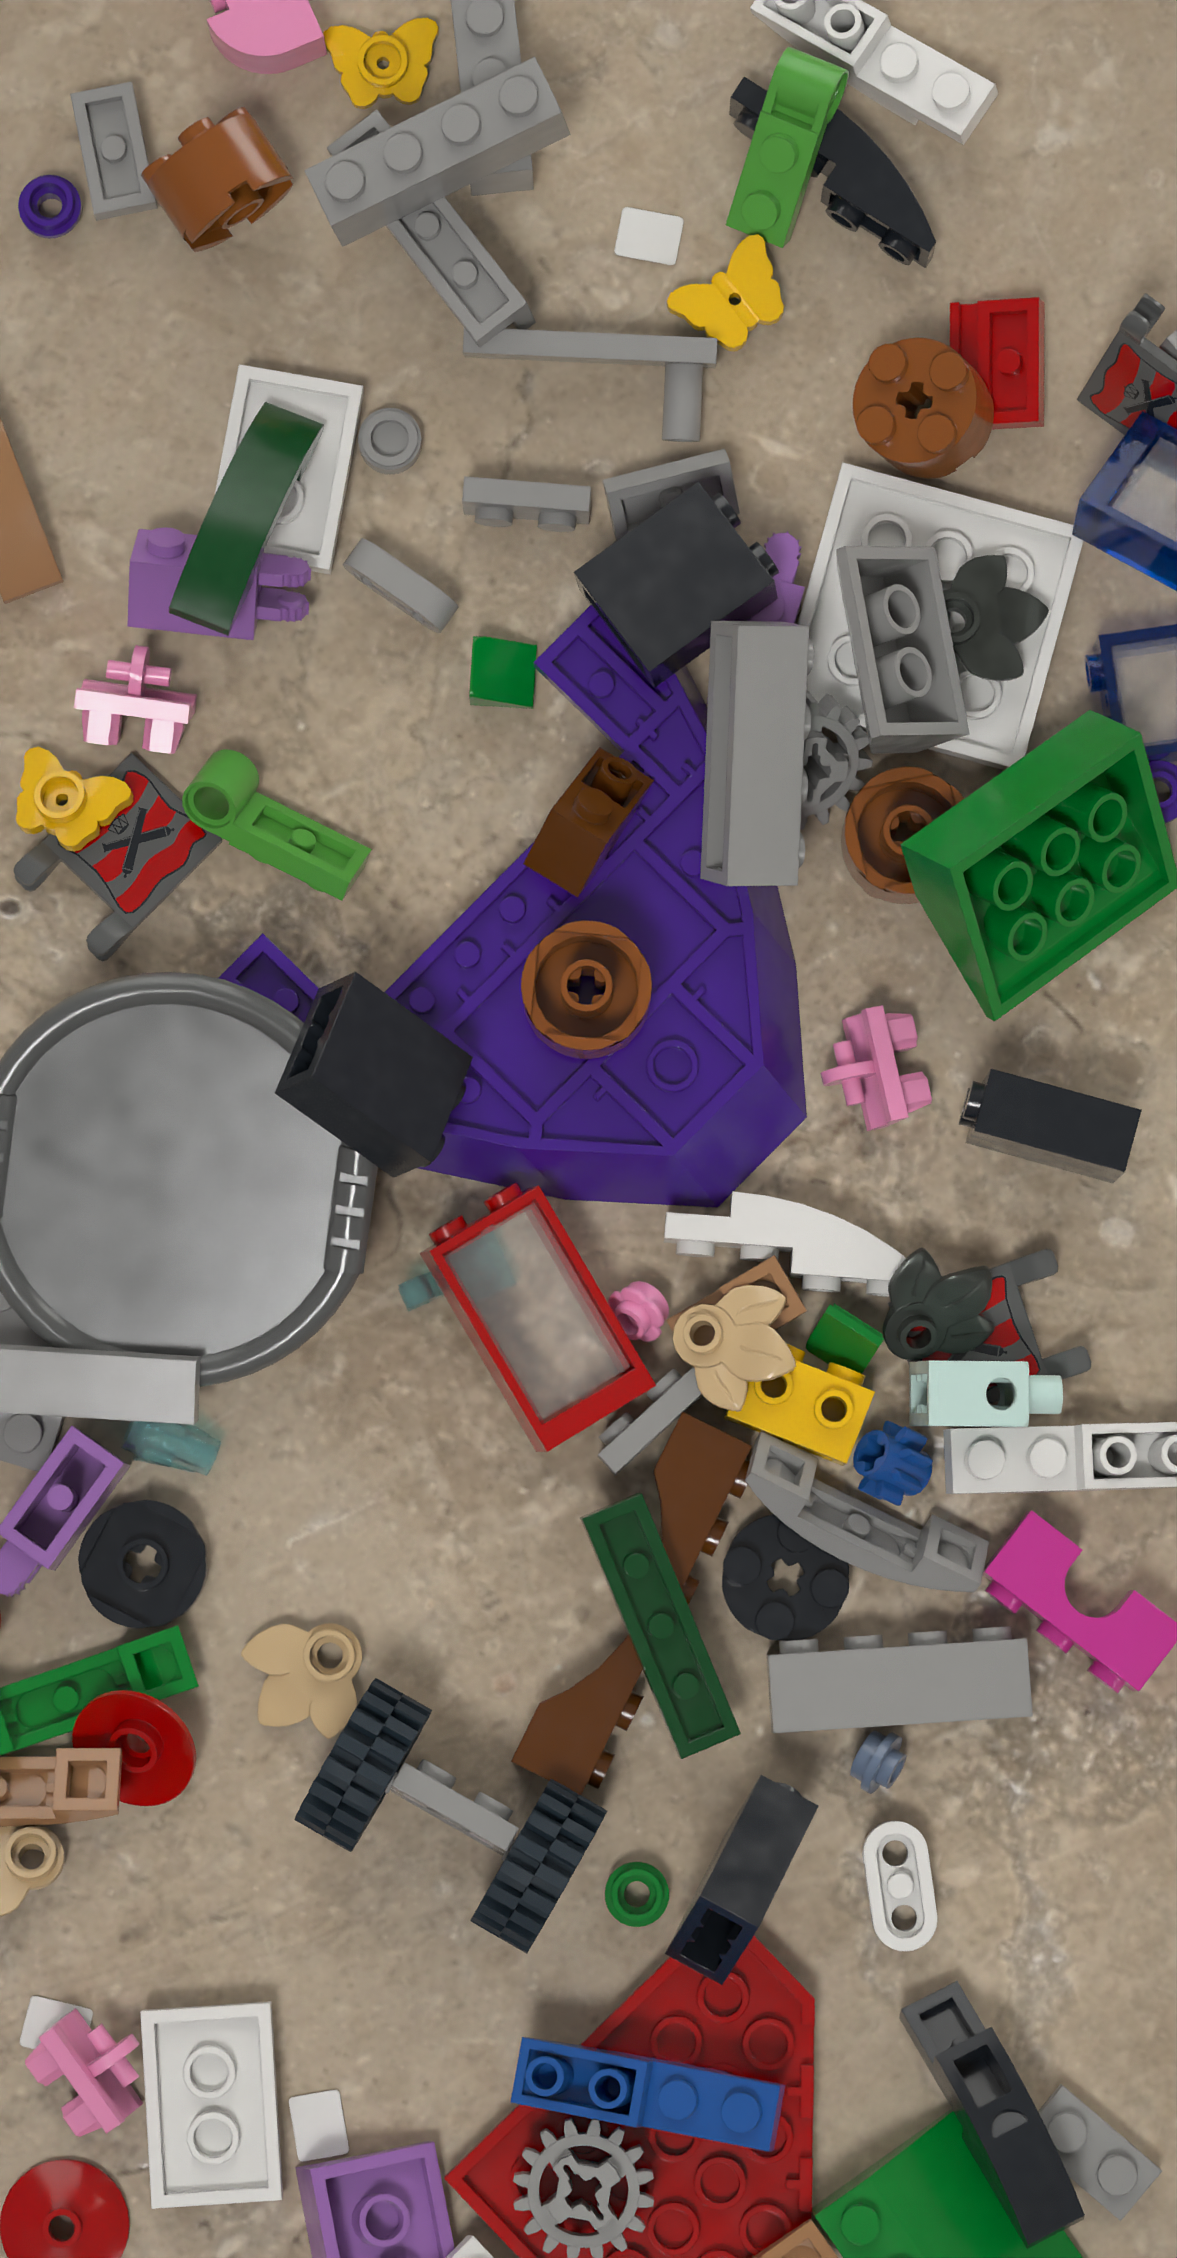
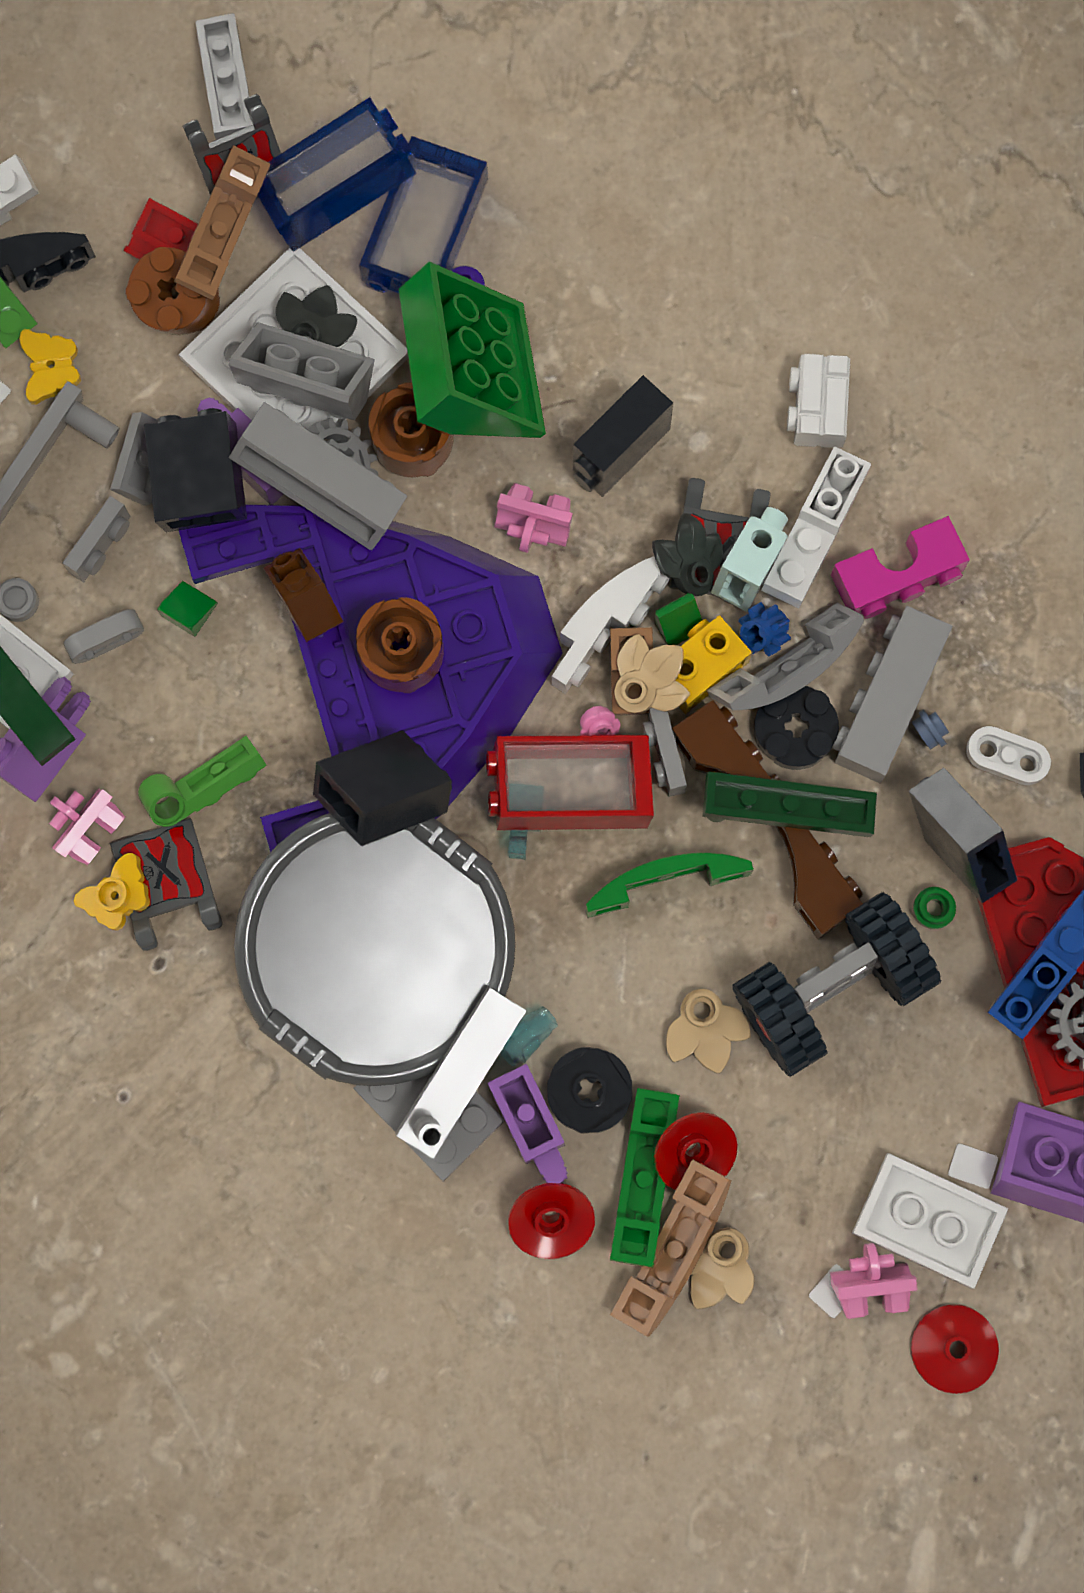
camera: 60 degrees left, 5 degrees down
(422, 1457) = (719, 869): none -> green slope
(1041, 421) = (222, 222): none -> medium nougat slope

